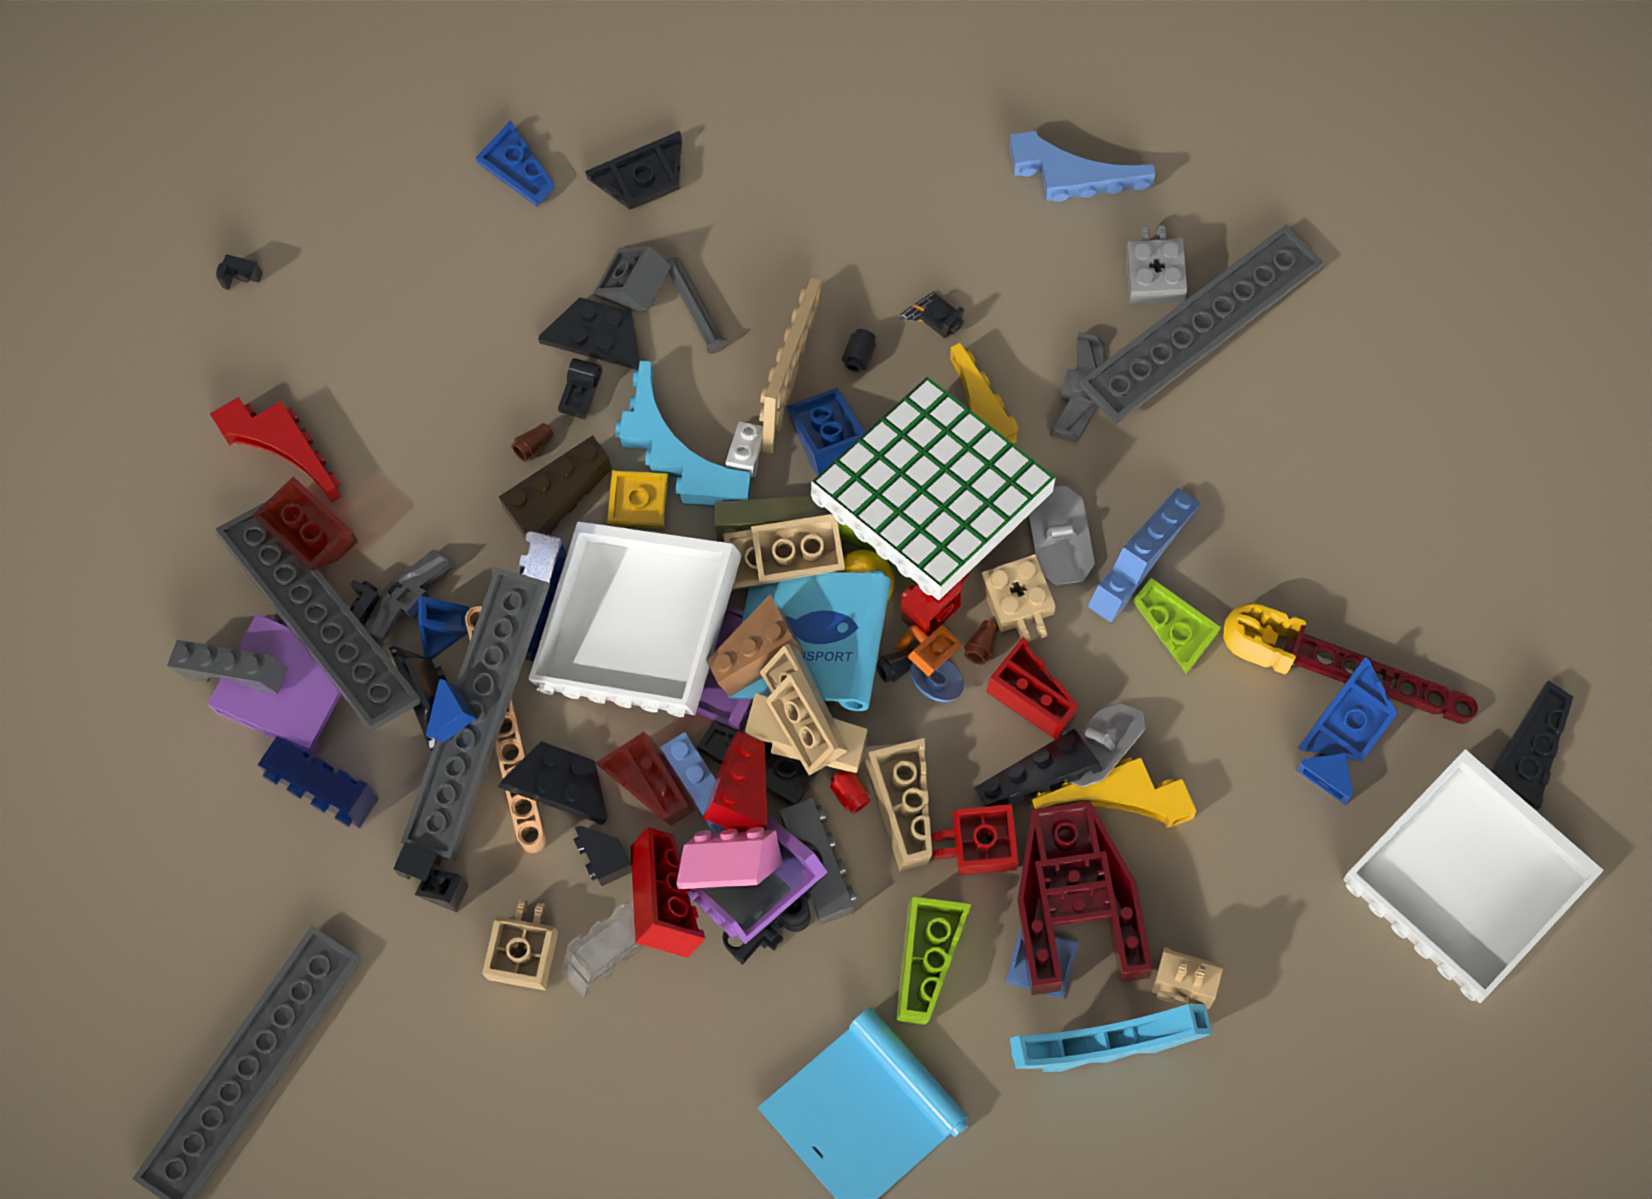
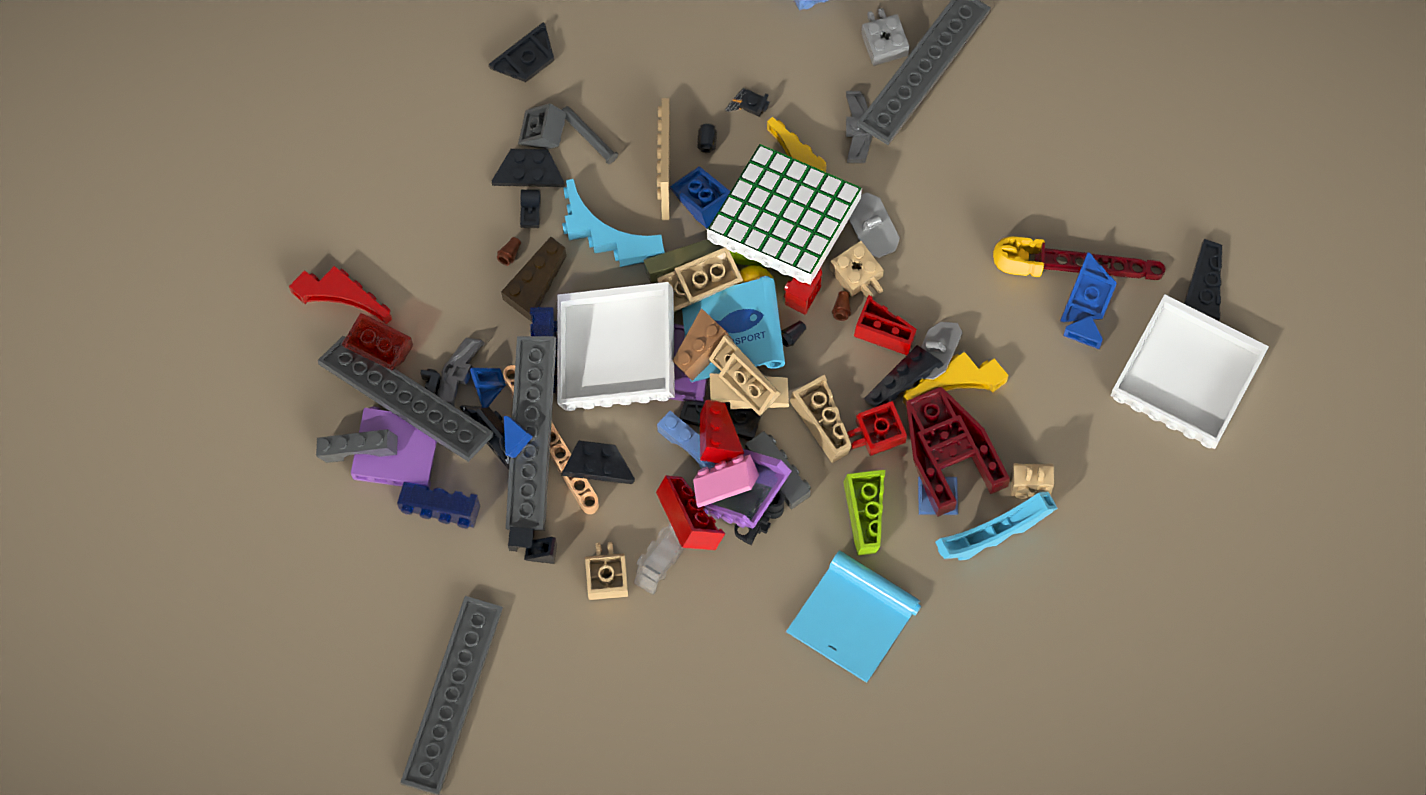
camera: 20 degrees left, 0 degrees up
(238, 268) = (274, 185): black bracket -> none
(515, 165) = (439, 71): blue wing -> none
(605, 855) = (640, 501): black slope -> none
(638, 499) = (591, 271): yellow plate -> none
(648, 777) = (654, 446): clear red wedge -> none
(745, 448) = (652, 219): white plate -> none
(849, 791) = (785, 421): red brick -> none
(932, 649) = (812, 318): orange plate -> none
(943, 685) = (820, 335): medium blue dish -> none
(1141, 554) = (928, 224): medium blue arch -> none
(1176, 623) = (962, 262): lime wing -> none

